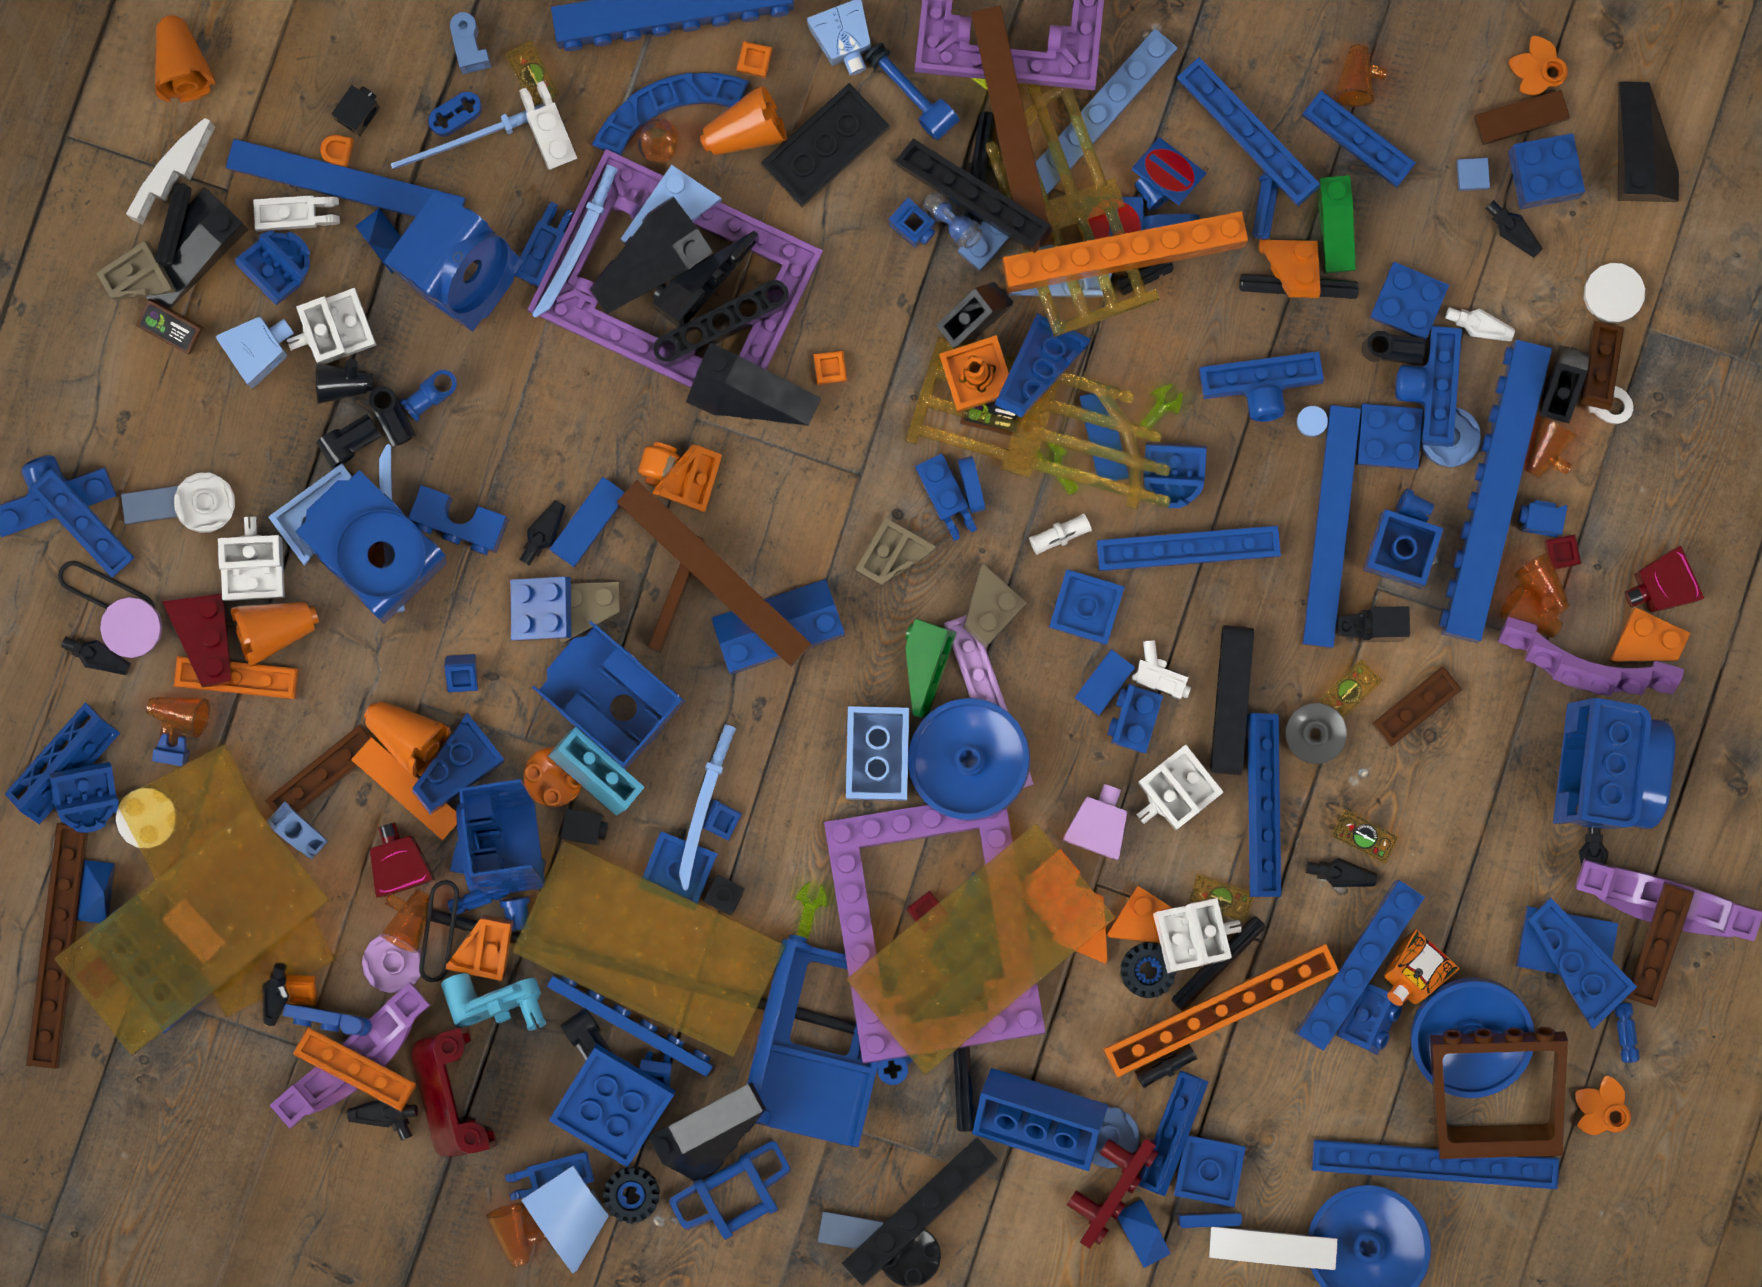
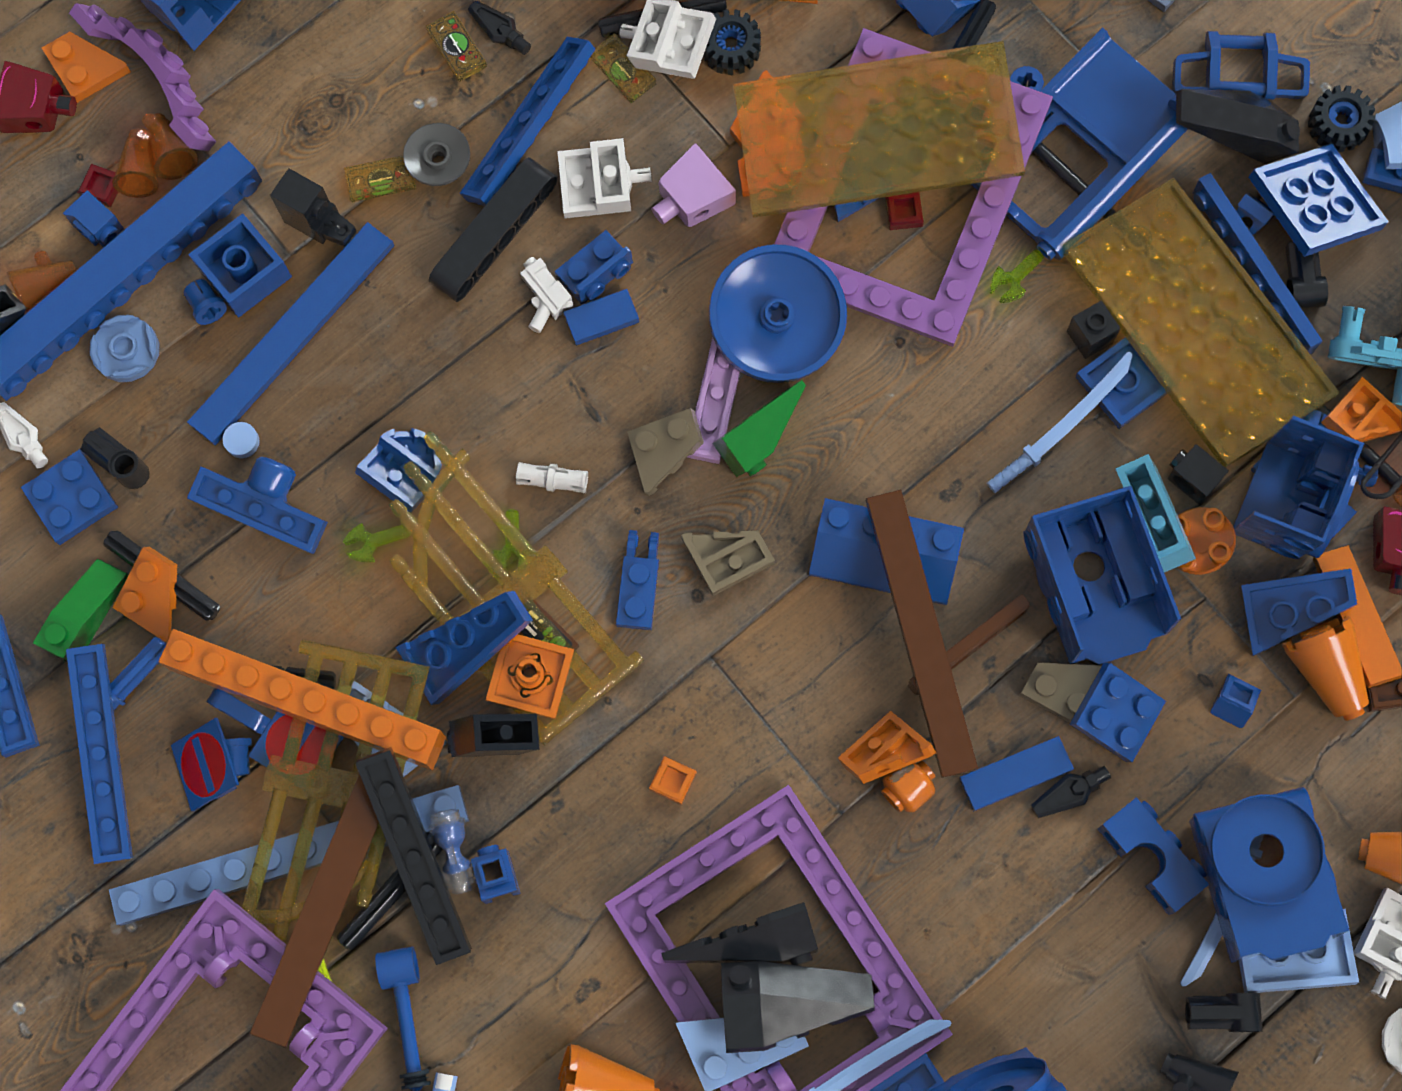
camera: 145 degrees left, 10 degrees down
(392, 418) = (1164, 1005): black piece -> none
(427, 395) = (1112, 1009): blue connector -> none
(721, 819) = (1052, 405): blue slope -> none
(729, 310) = (741, 876): black beam -> none
(742, 389) = (778, 806): black wedge -> none
(825, 145) = (530, 1018): black tile -> none
(877, 753) = (863, 371): light blue brick -> none
(971, 484) = (606, 573): blue beam -> none
(1086, 607) = (572, 393): blue plate -> none
(1104, 437) = (451, 542): blue tile -> none
(1137, 918) = (706, 94): orange wing -> none
(1188, 548) = (439, 390): blue plate -> none
(1389, 436) = (178, 381): blue plate -> none
(1417, 706) = (329, 129): reddish brown tile -> none
(1435, 386) = (102, 397): blue plate -> none

